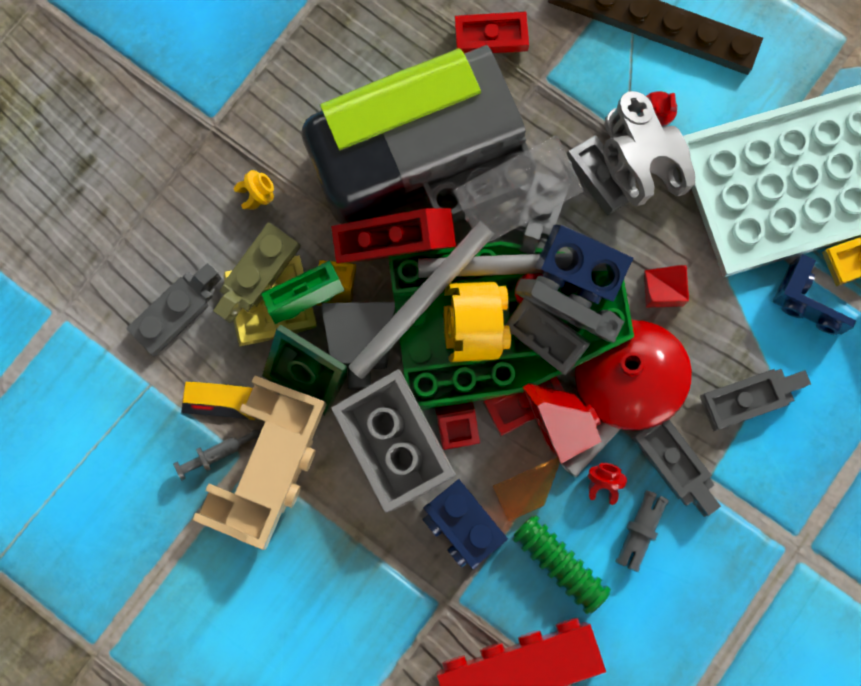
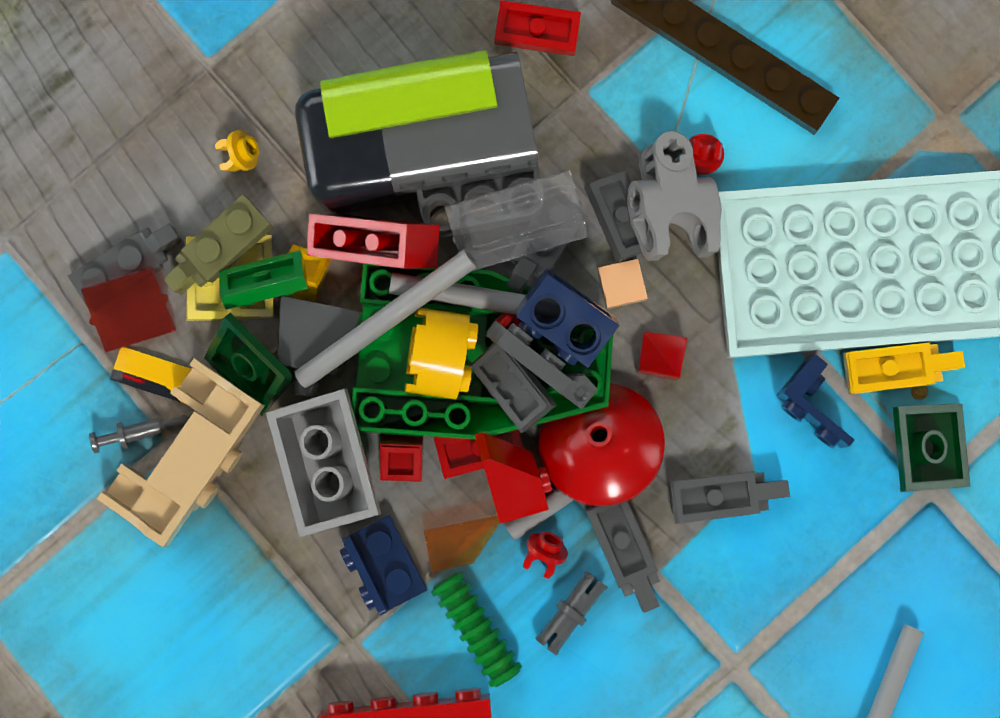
camera: 10 degrees right, 5 degrees up
(186, 346) = (128, 309): none -> clear red piece
(616, 231) = (622, 283): none -> light nougat tile

